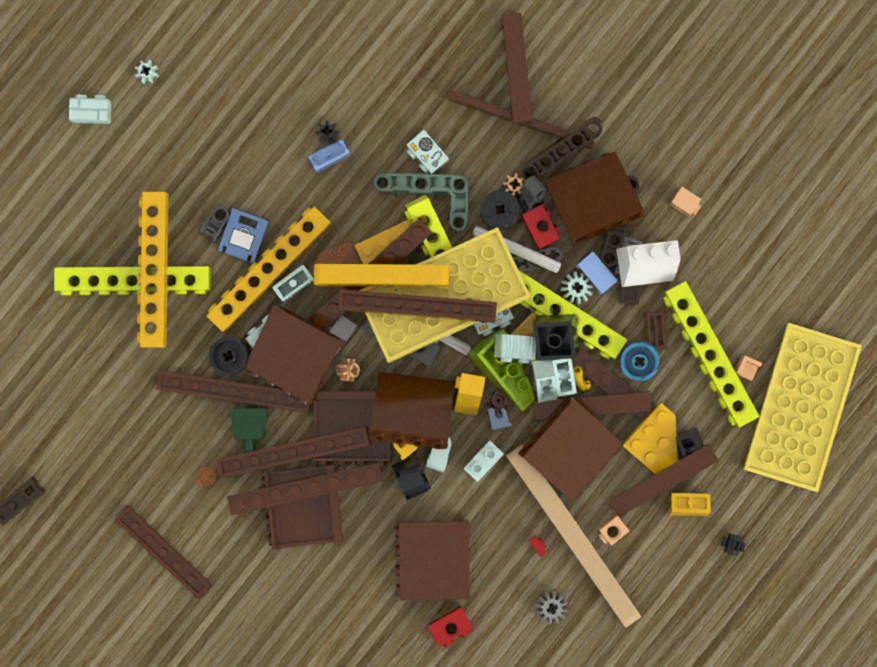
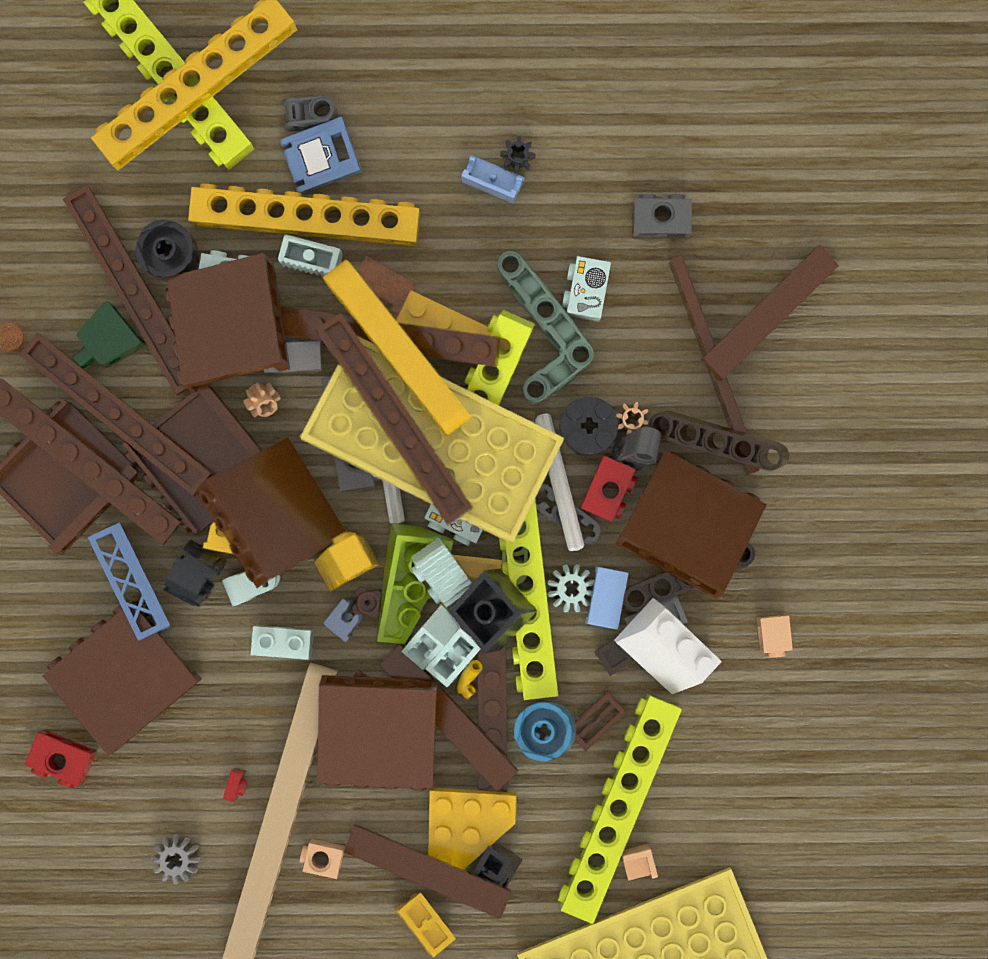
camera: 60 degrees right, 0 degrees up
(390, 509) = (139, 577): none -> medium blue fence
(416, 94) = (646, 225): none -> dark grey brick

